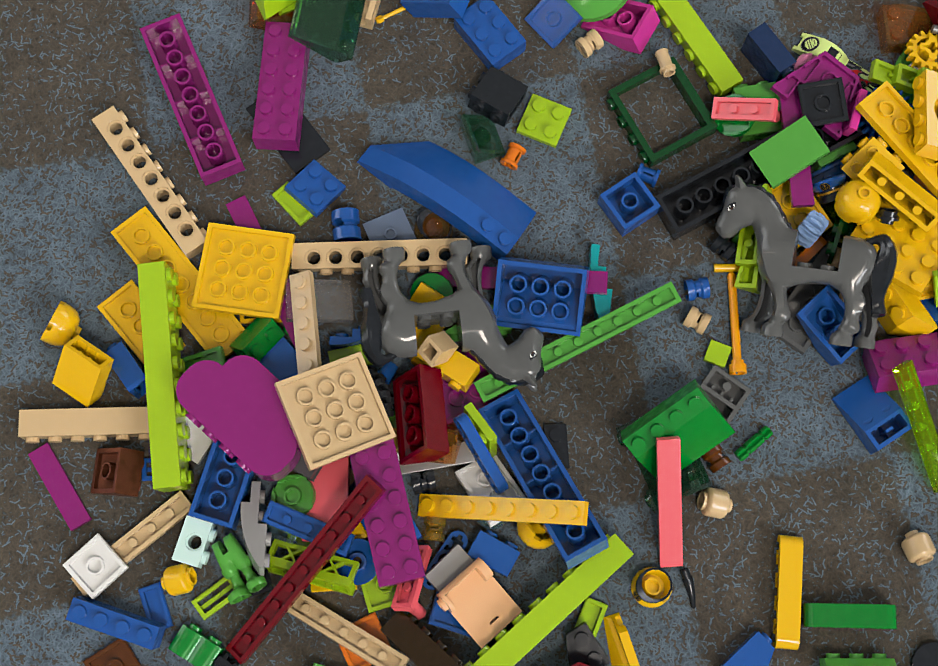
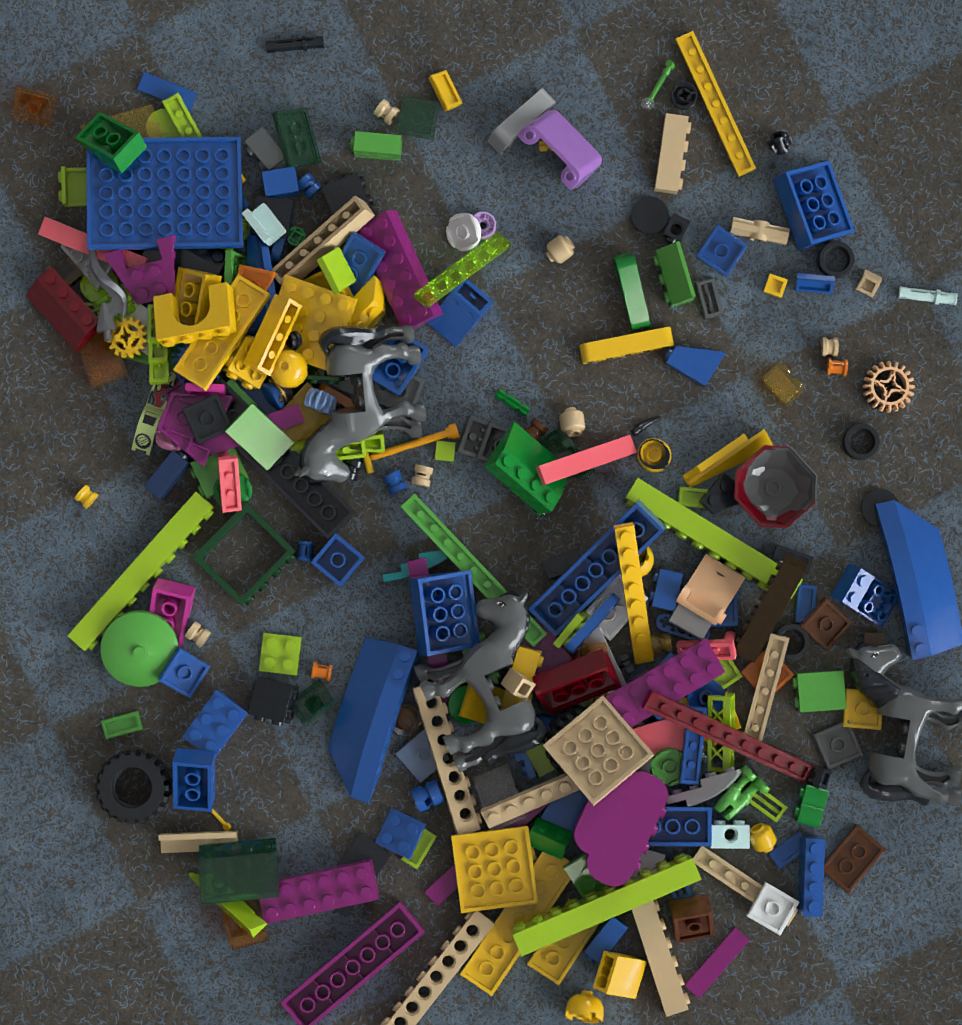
camera: 110 degrees left, 10 degrees up
(666, 67) = (203, 562): tan pin -> none

